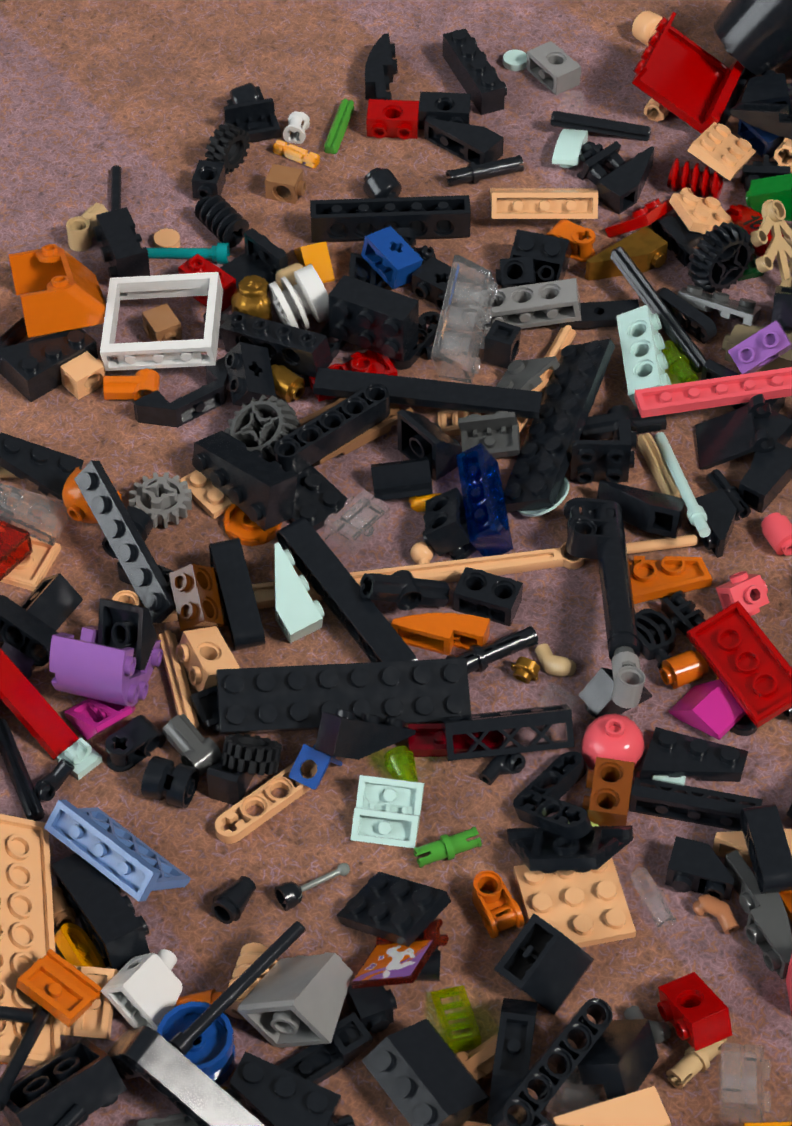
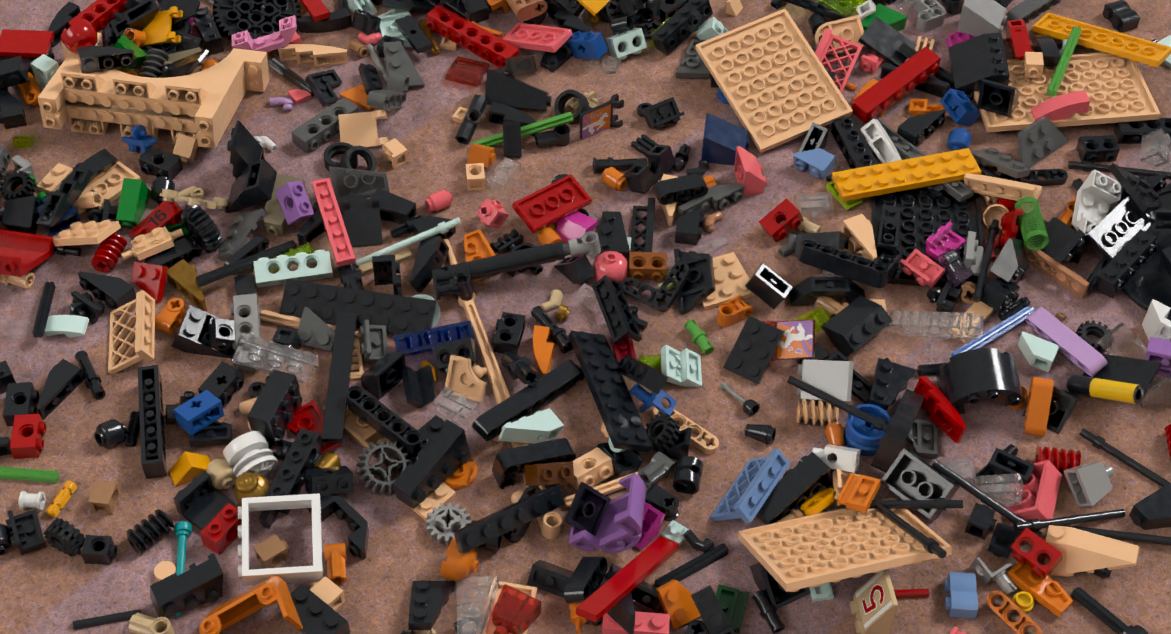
camera: 100 degrees left, 0 degrees up
(400, 529) = (463, 380): none -> light nougat tile

